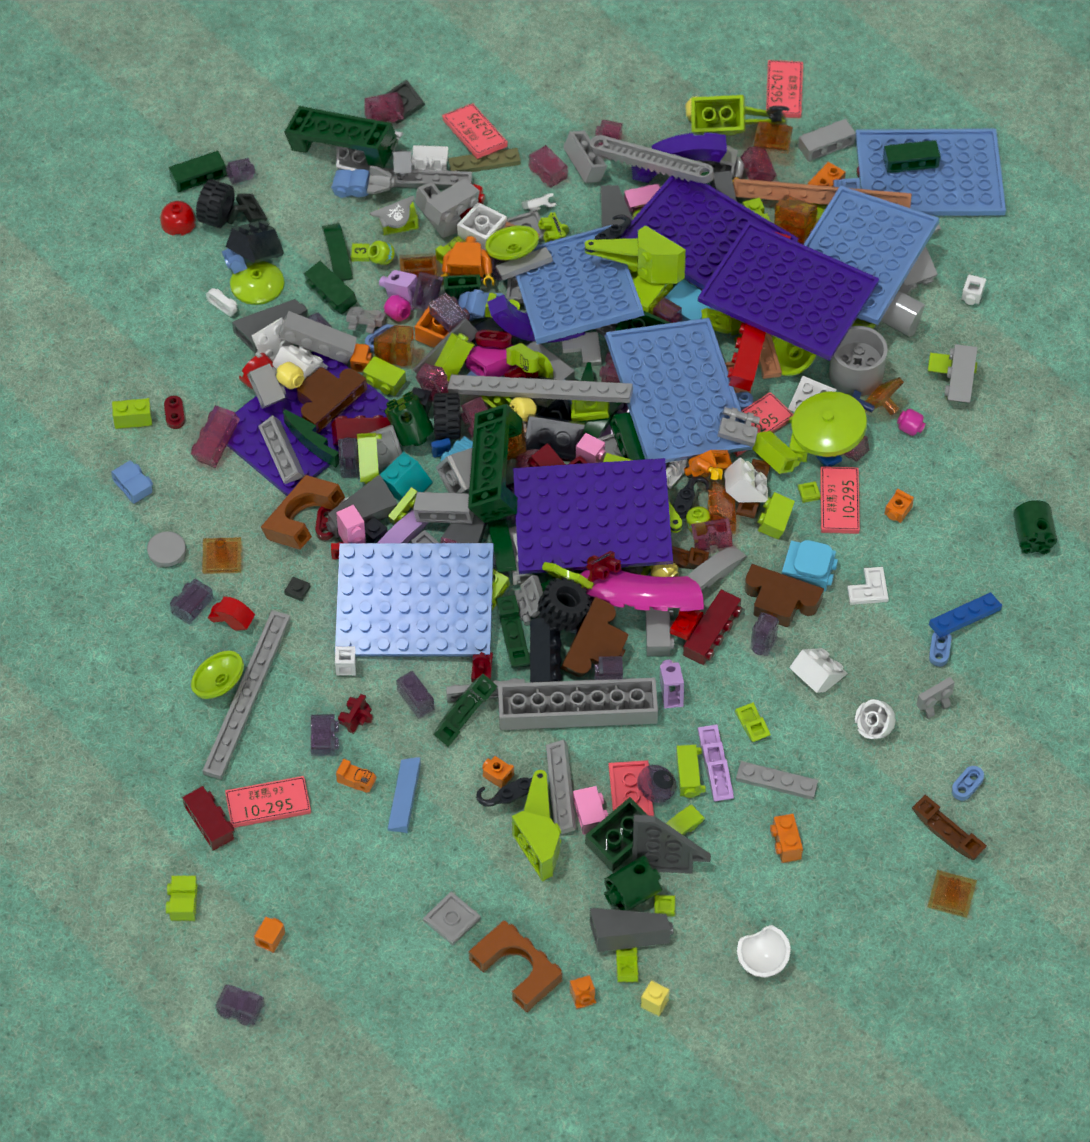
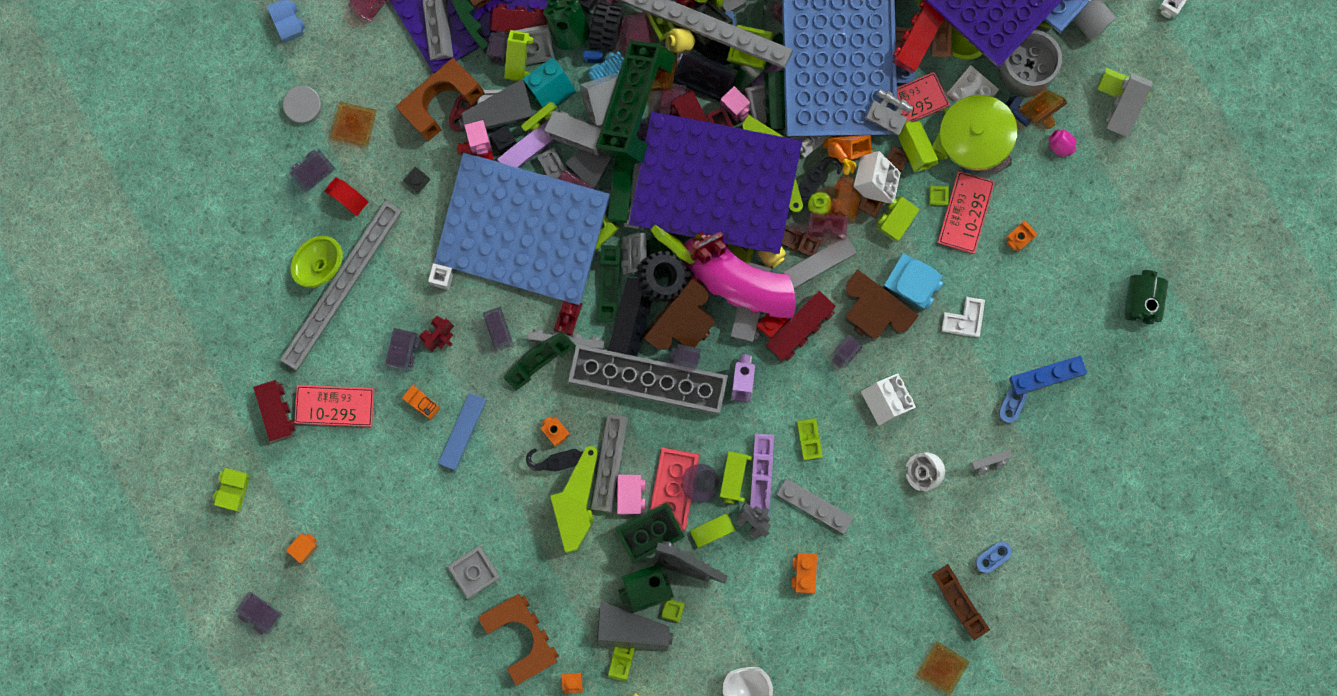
camera: 15 degrees right, 25 degrees up
(712, 799) = (757, 518): none -> dark grey hips

